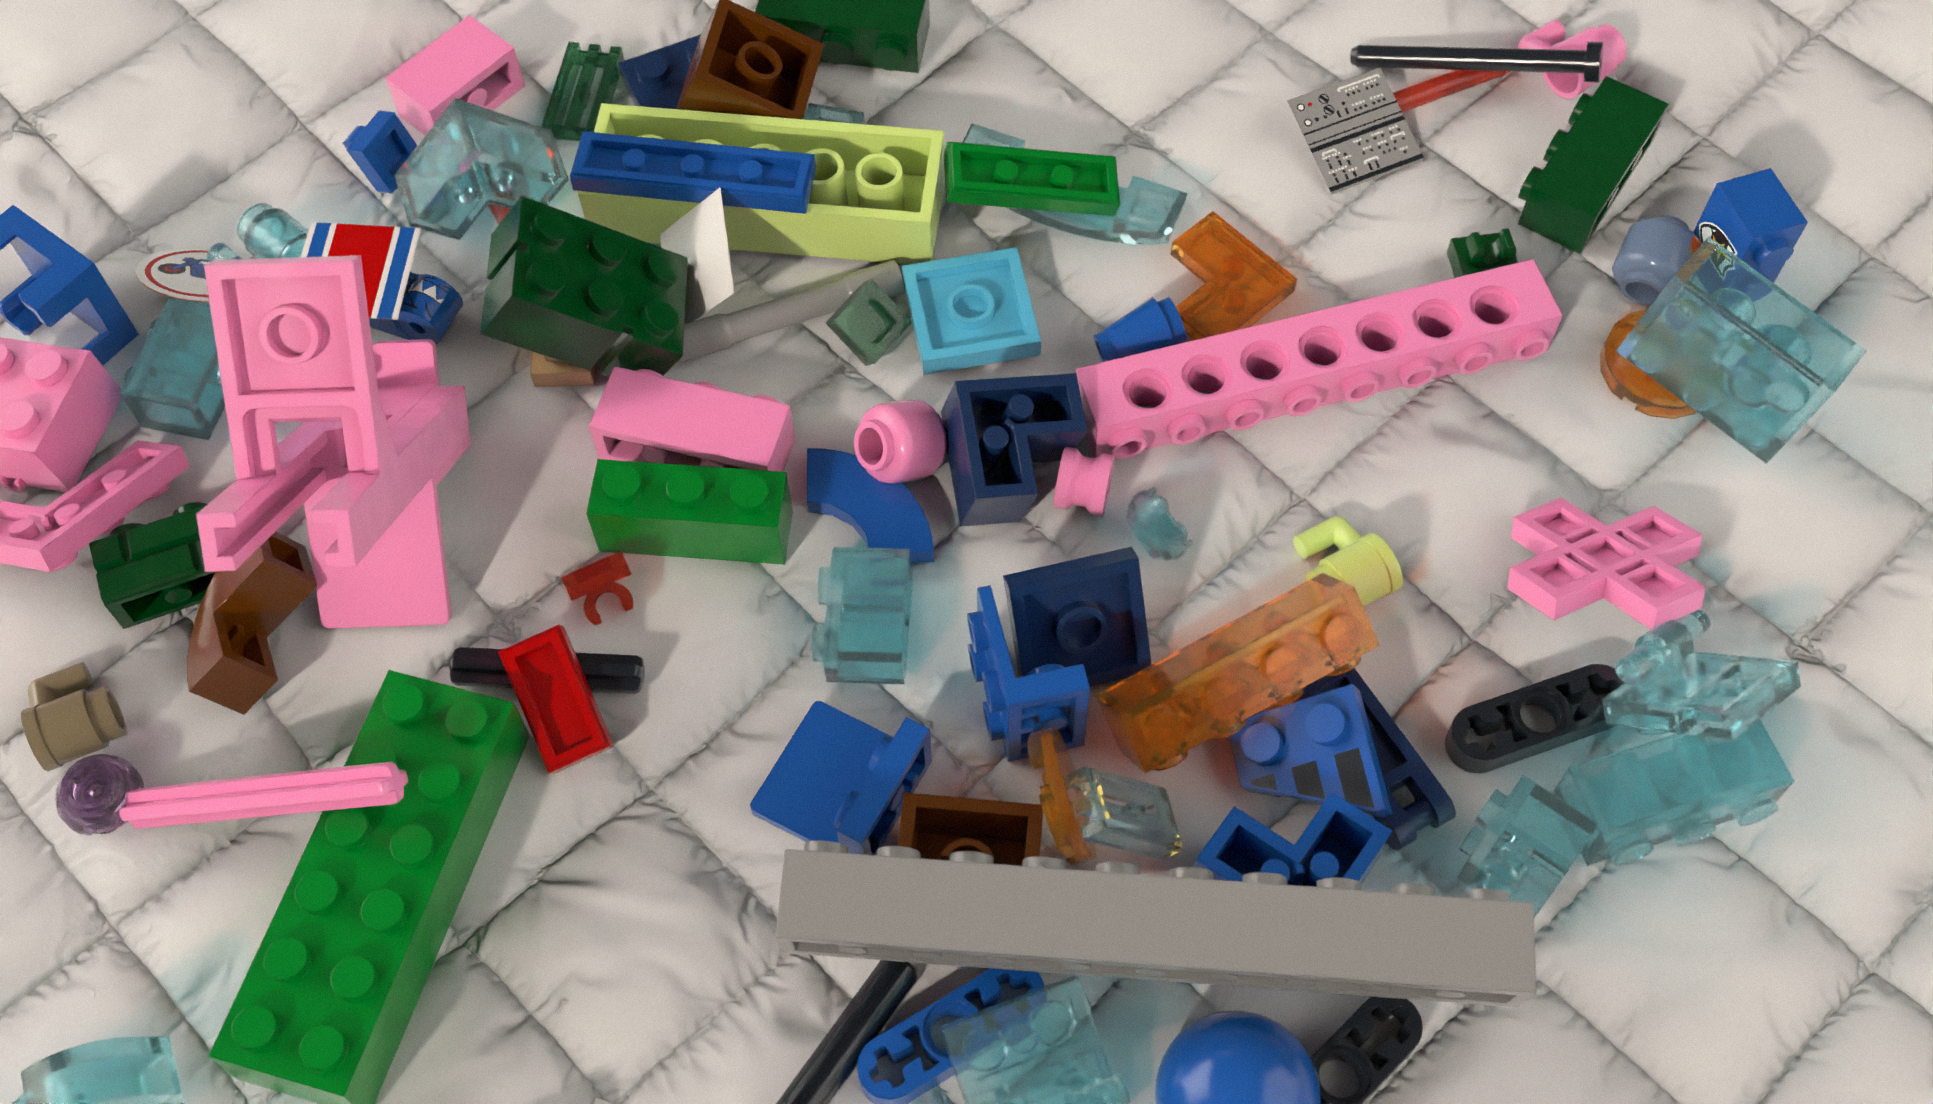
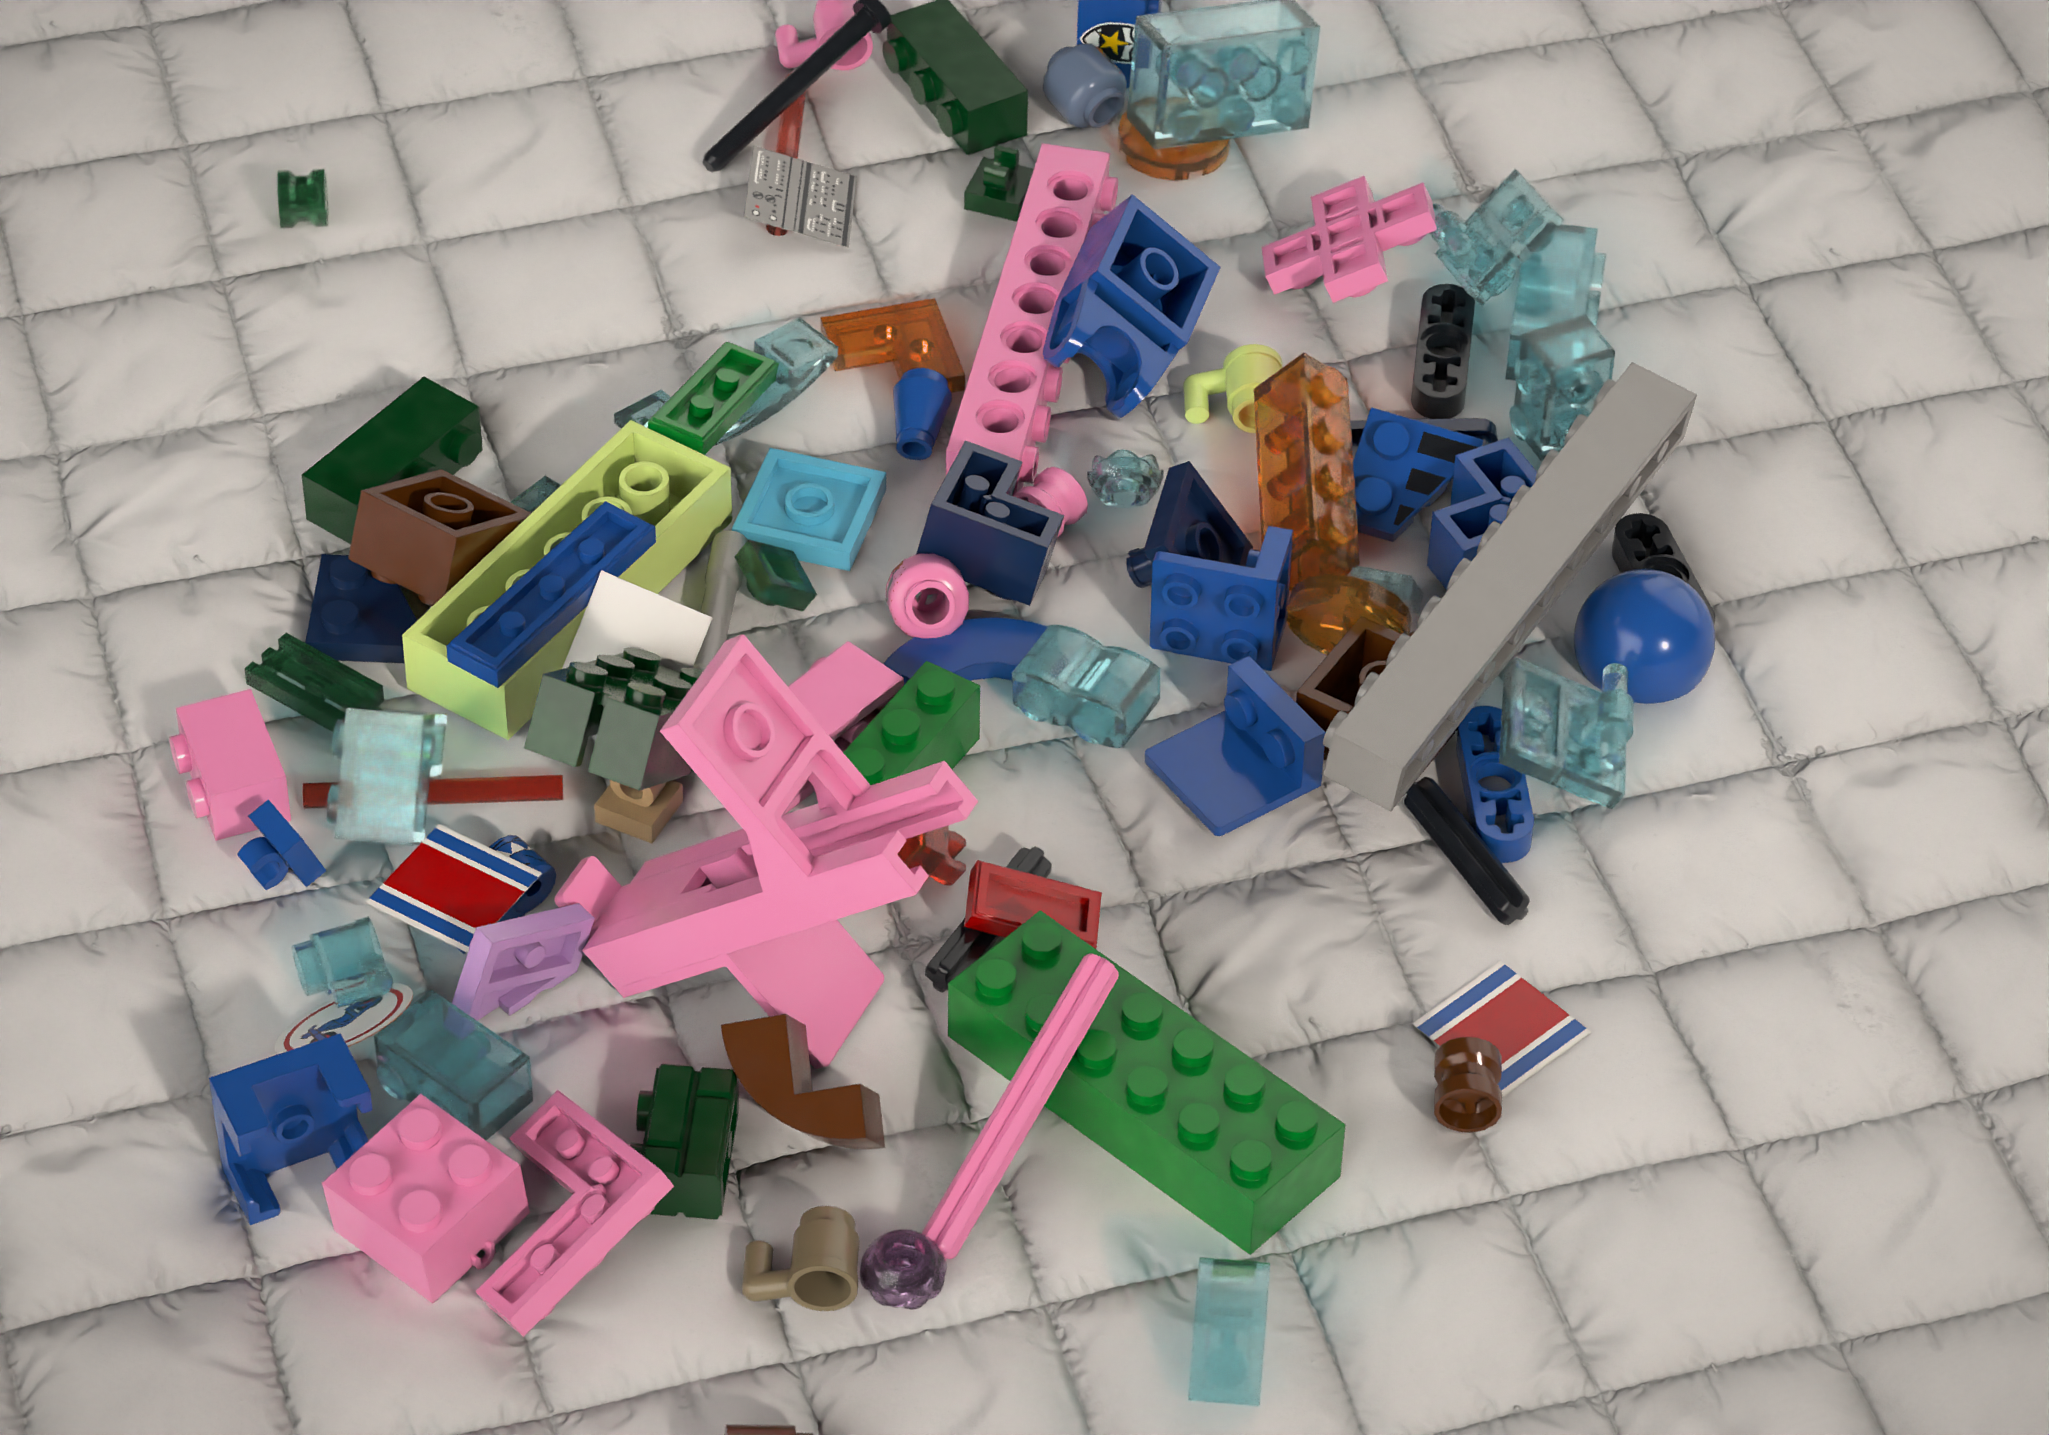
camera: 65 degrees left, 15 degrees down
(1343, 427) = (1130, 301): none -> blue brick

